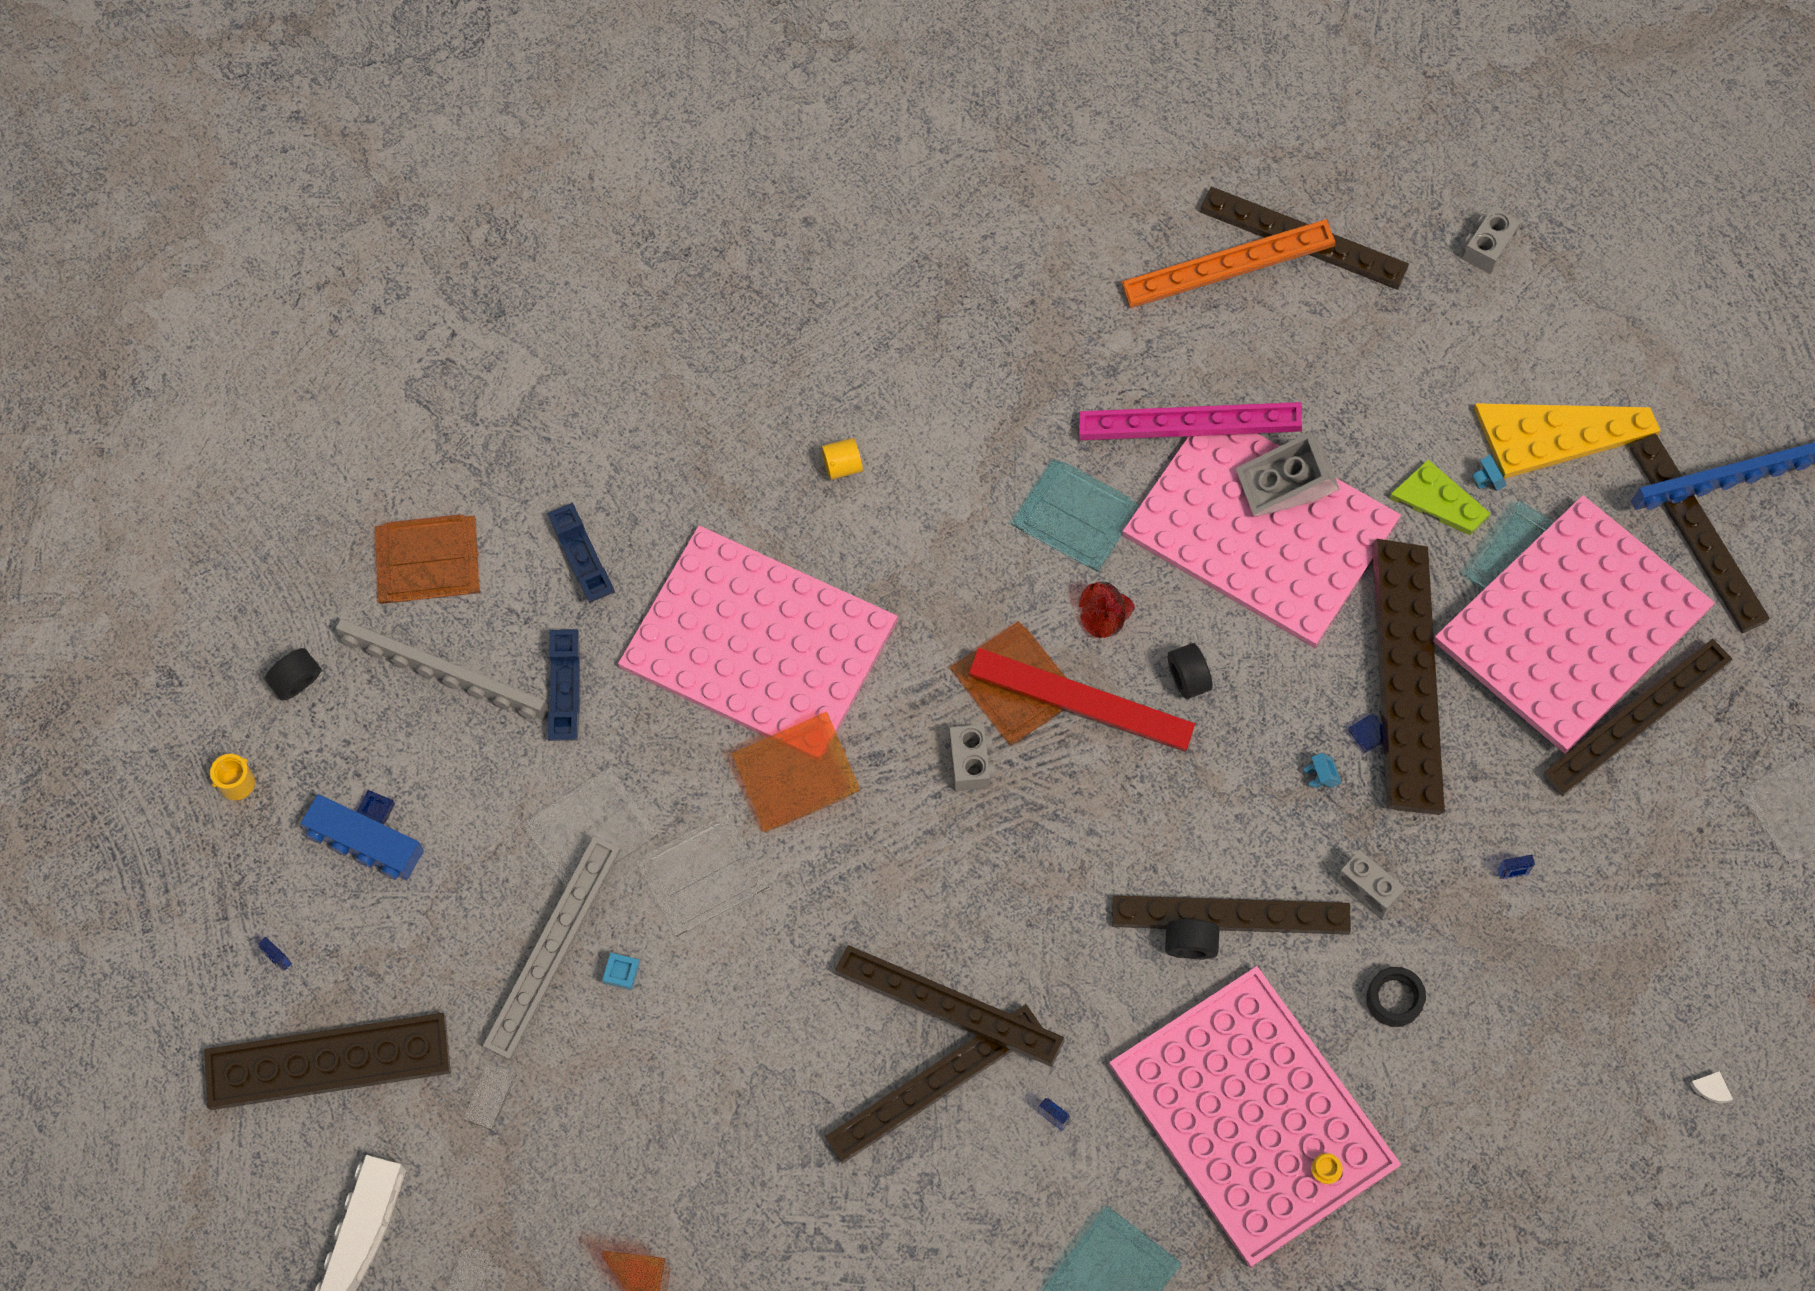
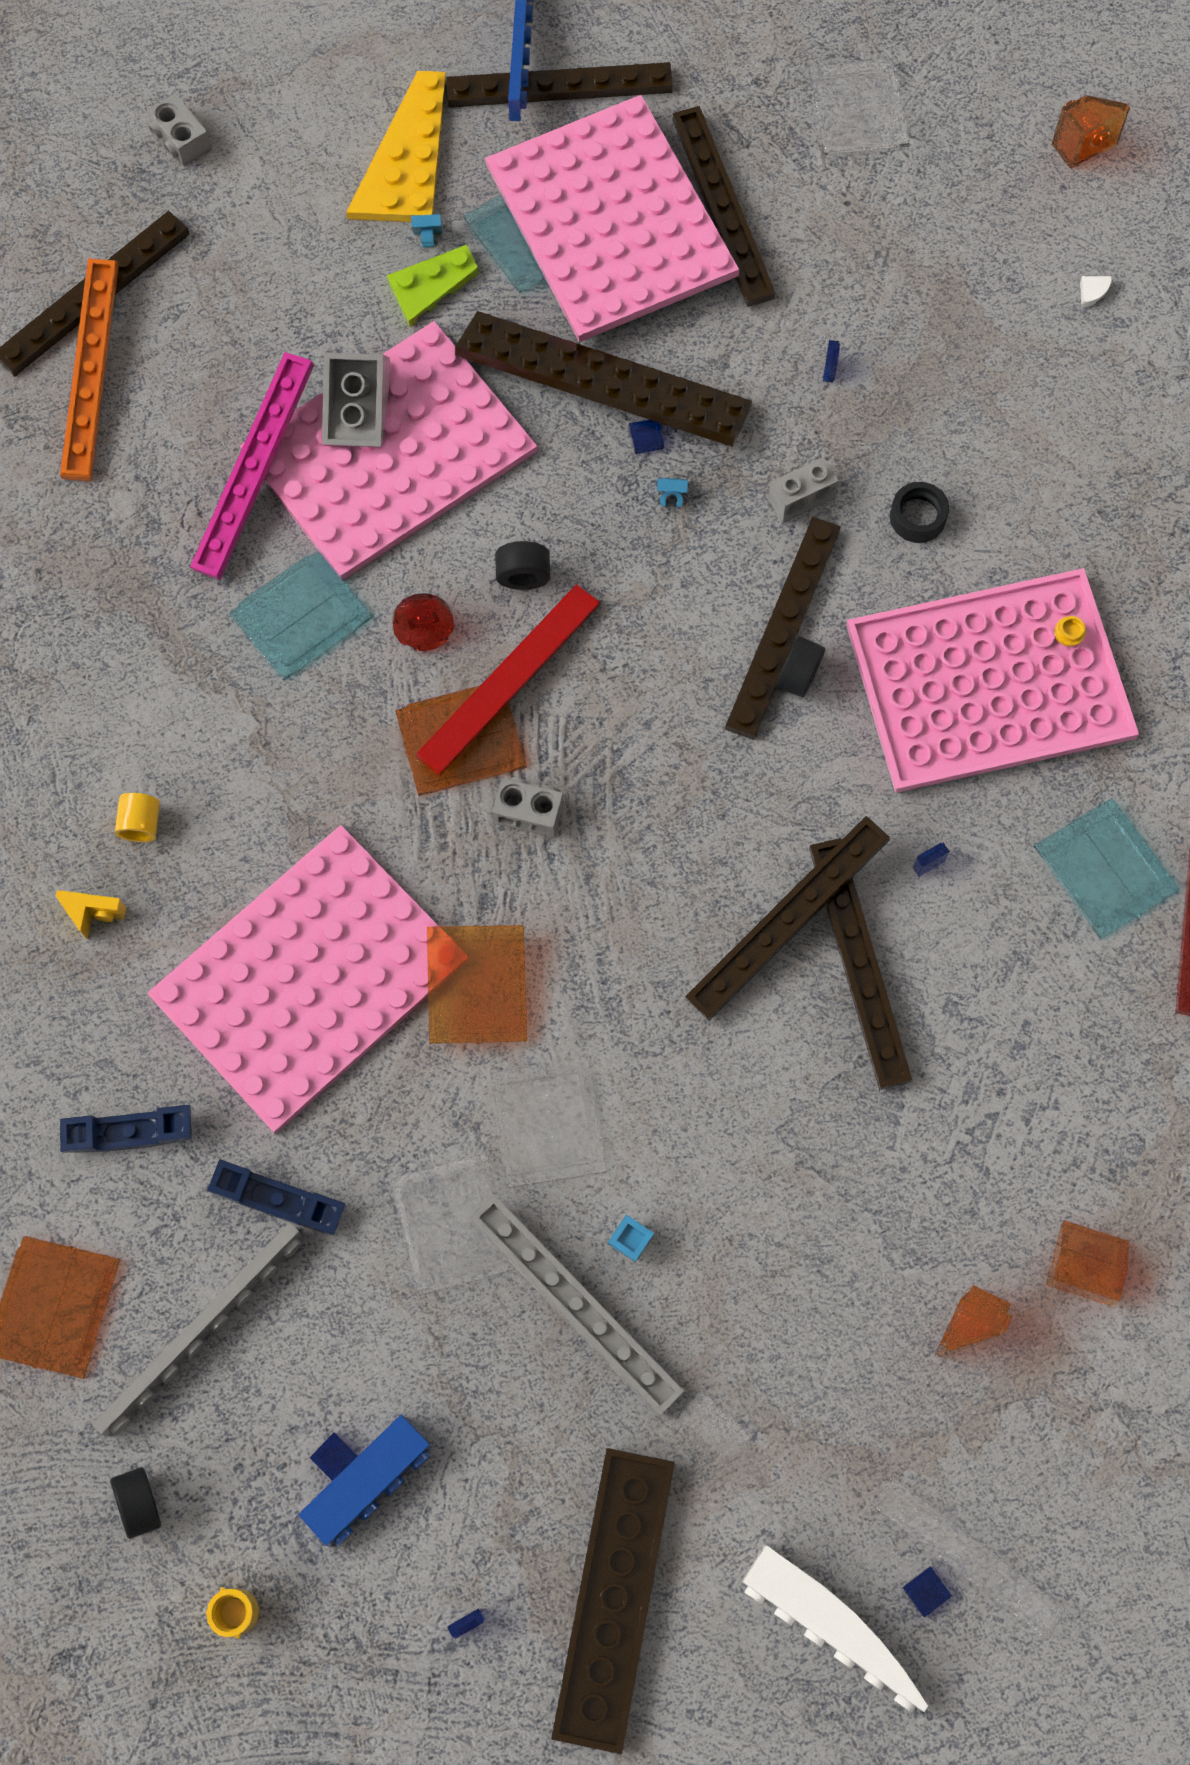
camera: 70 degrees left, 5 degrees up
(748, 451) = (83, 907): none -> yellow slope

